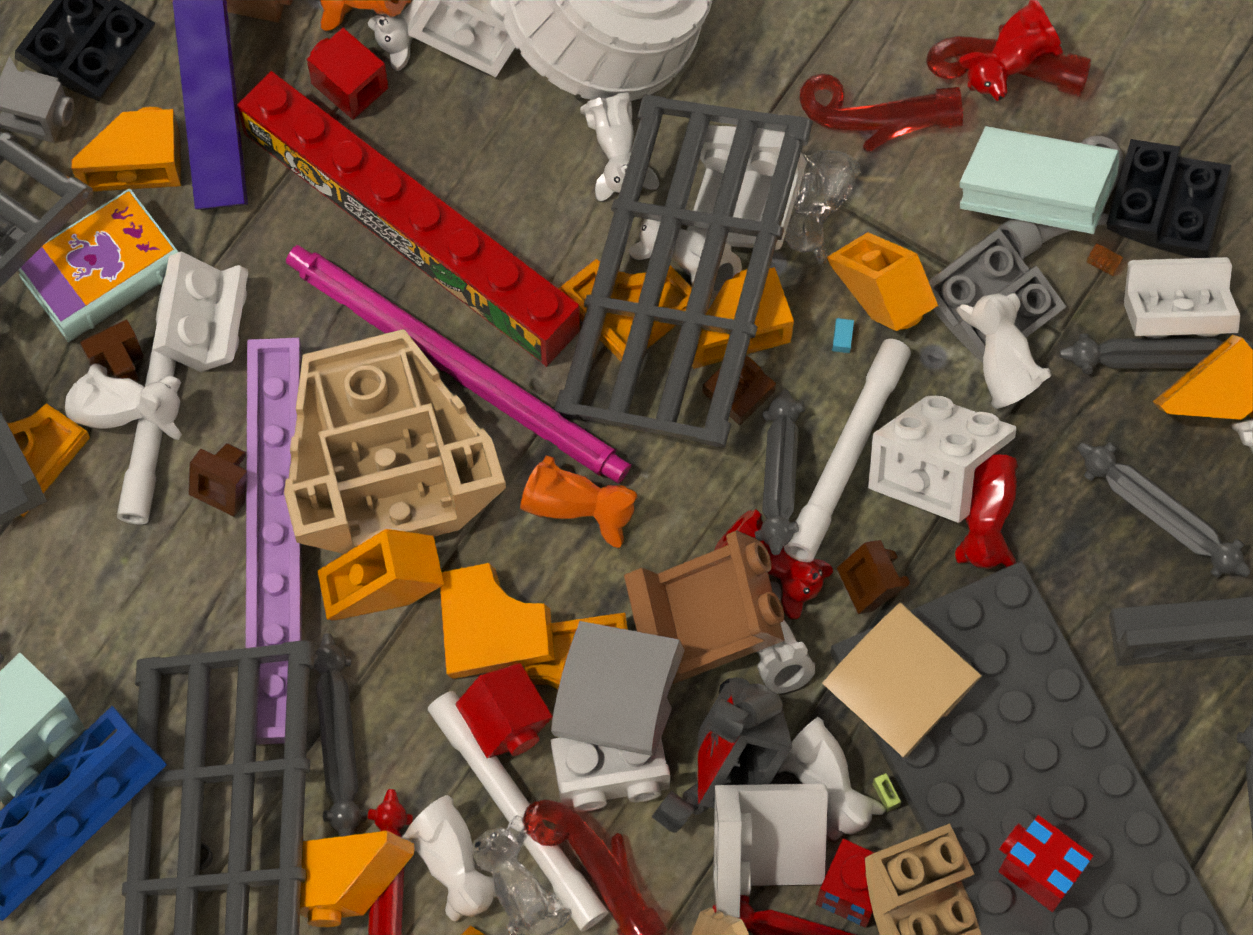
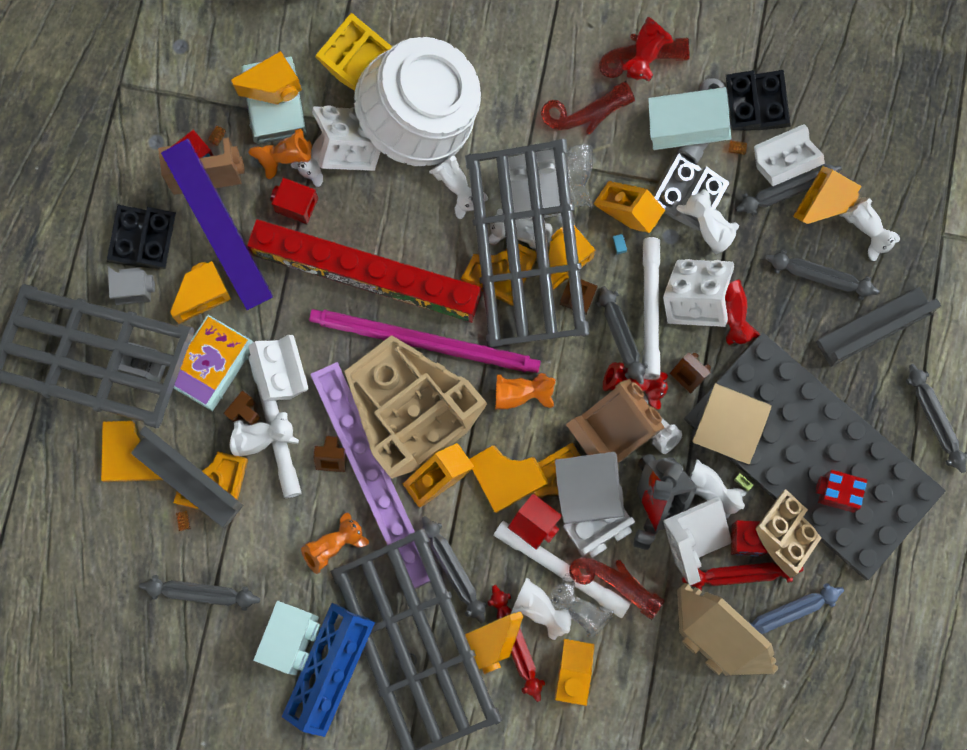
camera: 20 degrees left, 10 degrees up
(144, 617) = (320, 551): none -> orange animal

